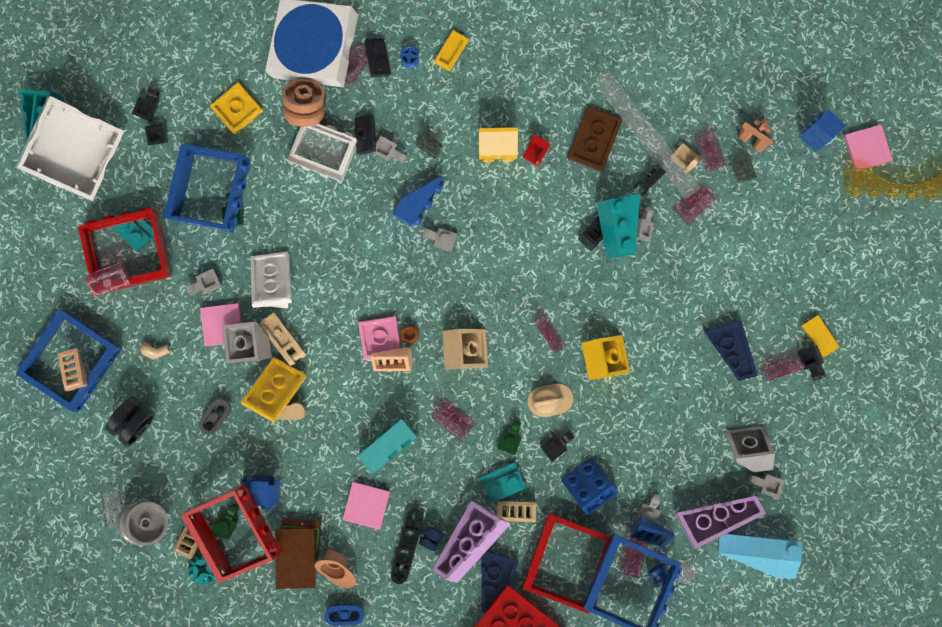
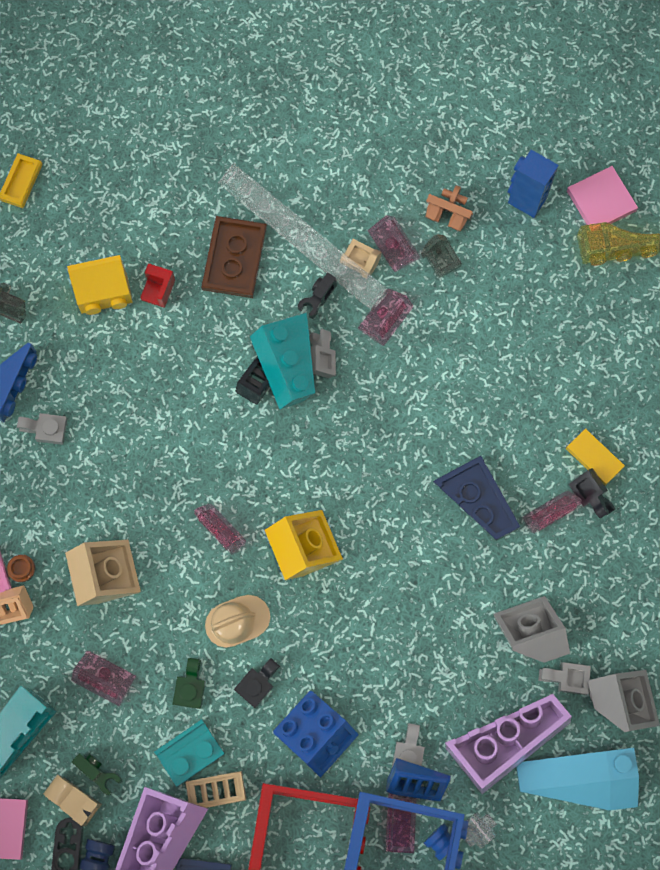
camera: 10 degrees left, 10 degrees down
(420, 498) = (72, 800): none -> tan leg
(436, 479) = (91, 768): none -> dark green plate
(802, 508) = (625, 700): none -> light grey slope

